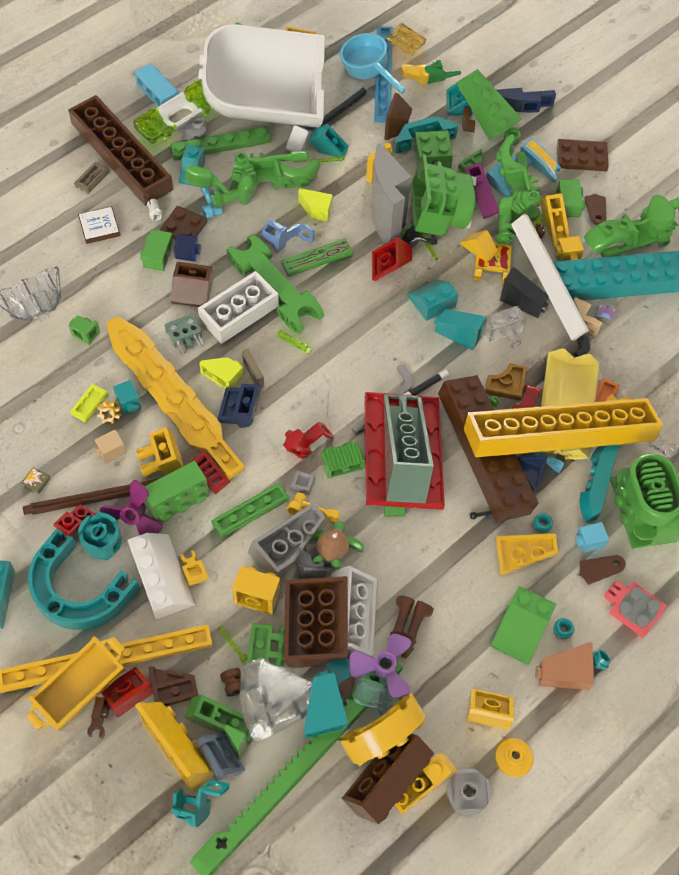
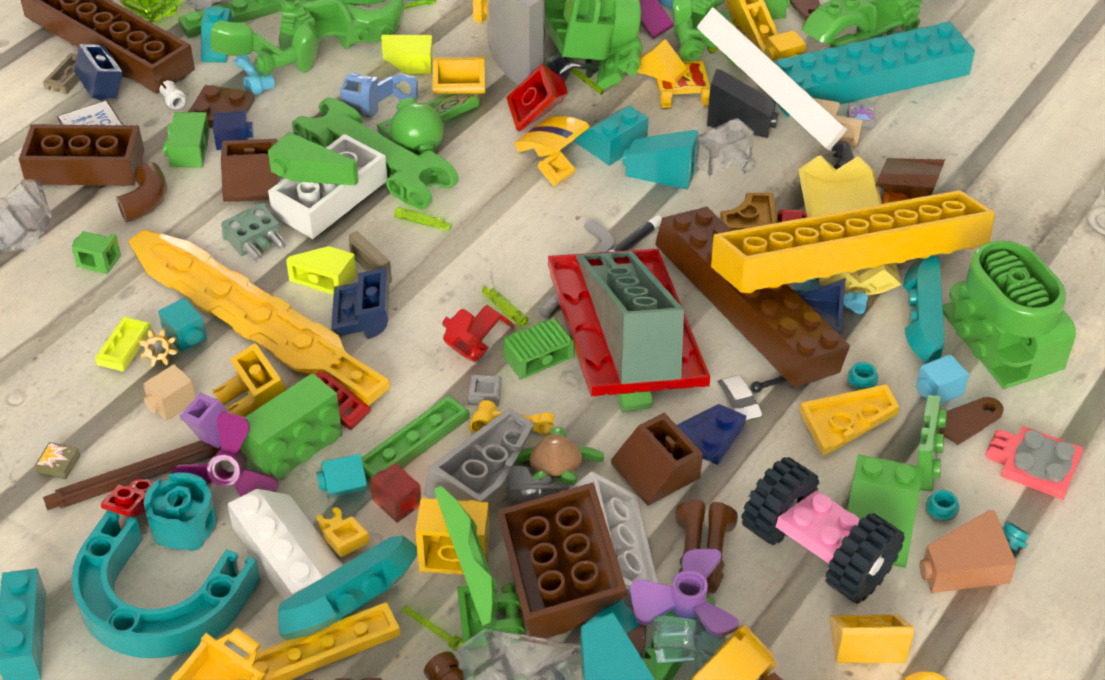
camera: 10 degrees left, 15 degrees down
(87, 251) = (82, 154): none -> reddish brown brick
(109, 184) = (98, 71): none -> dark blue brick
(124, 475) = (202, 418): none -> medium lavender brick
(125, 289) = (145, 197): none -> reddish brown cylinder
(186, 611) = (346, 588): none -> teal brick
(200, 531) = (342, 476): none -> teal brick
(226, 293) = (311, 163): none -> bright green slope
(230, 547) = (395, 492): none -> clear red brick
(258, 616) = (471, 557): none -> bright green slope
(305, 271) = (416, 126): none -> bright green brick
(331, 421) = (506, 306): none -> clear neon green wheel
(344, 226) = (458, 75): none -> yellow tile
(390, 318) = (556, 168): none -> yellow tile
(392, 292) = (551, 135): none -> yellow slope
(394, 560) = (658, 459): none -> reddish brown slope
(433, 543) = (714, 431): none -> clear blue wing
(450, 241) = (619, 61): none -> bright green plate
(461, 520) = (740, 396): none -> white sticker
(481, 634) = (855, 548): none -> black plate
(571, 584) = (931, 442): none -> bright green wing
(621, 373) = (910, 176): none -> reddish brown slope

